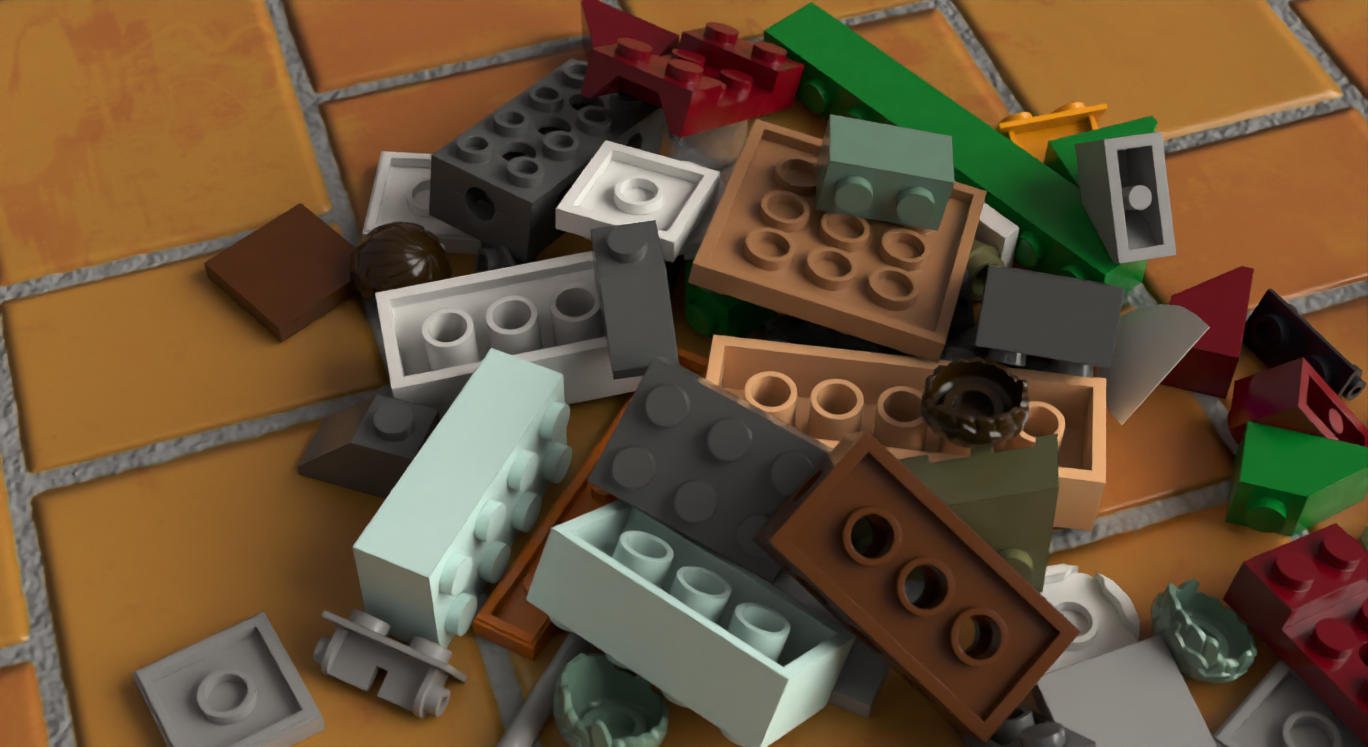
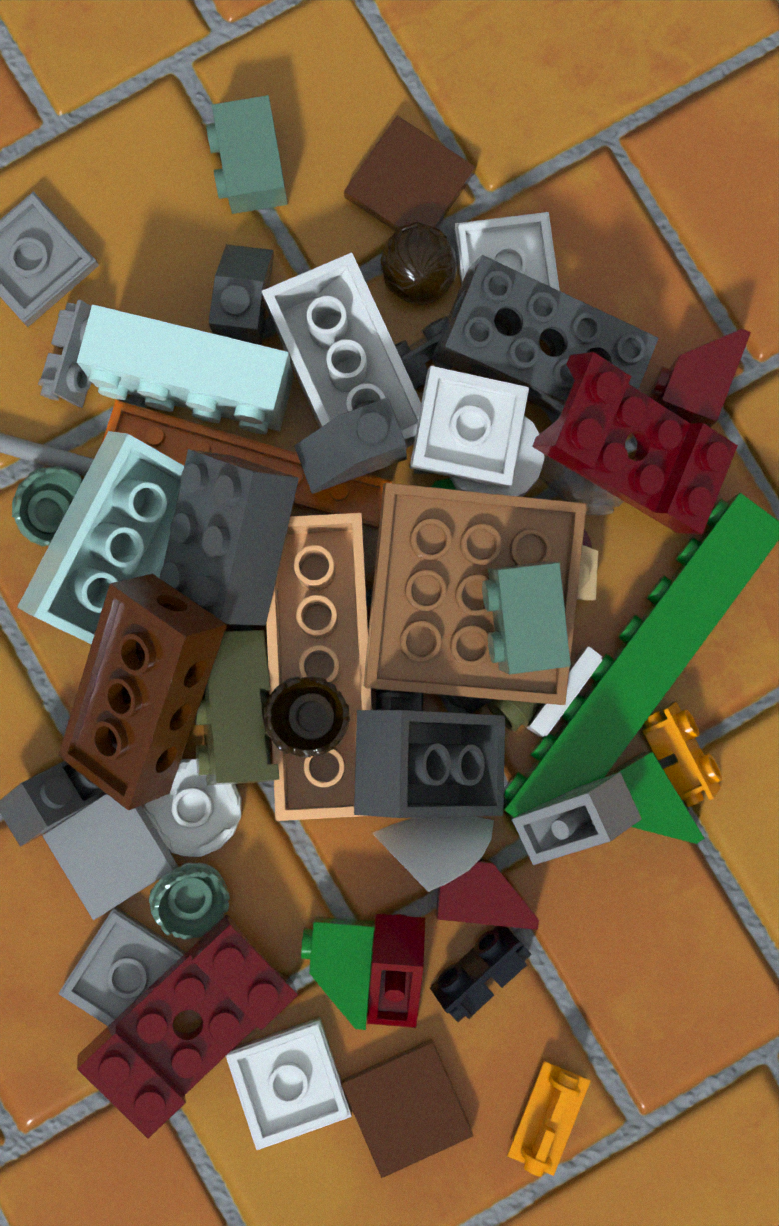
camera: 75 degrees right, 35 degrees up
(190, 410) = (248, 153): none -> sand green brick

